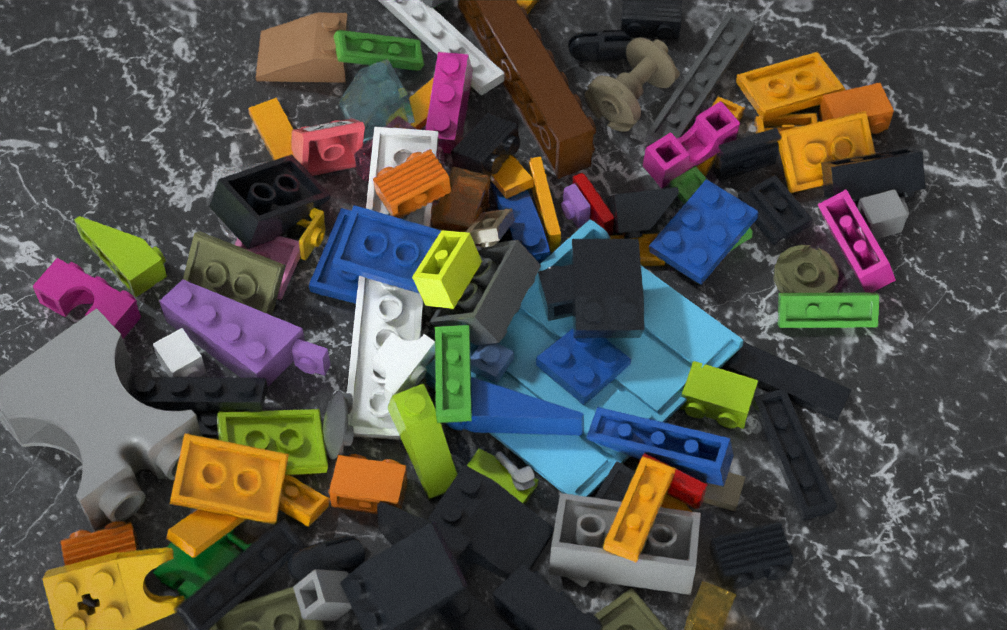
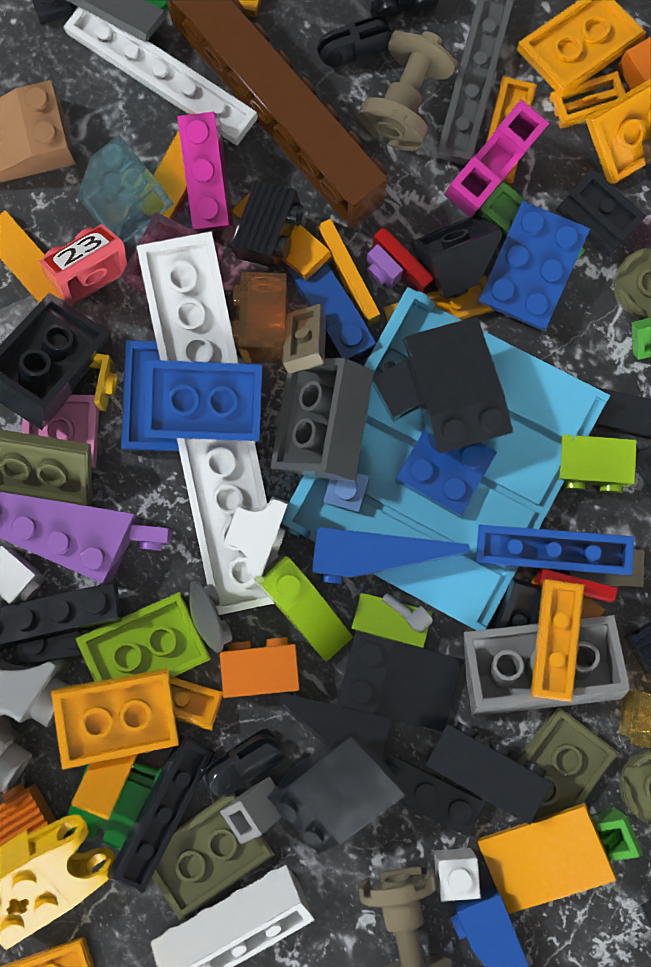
camera: 15 degrees left, 25 degrees up
(373, 48) = (102, 119): bright green tile -> none
(412, 184) = (203, 314): orange brick -> none
(447, 269) = (276, 413): neon yellow brick -> none
(453, 374) = (318, 537): bright green plate -> none
(747, 154) = (557, 150): black plate -> none

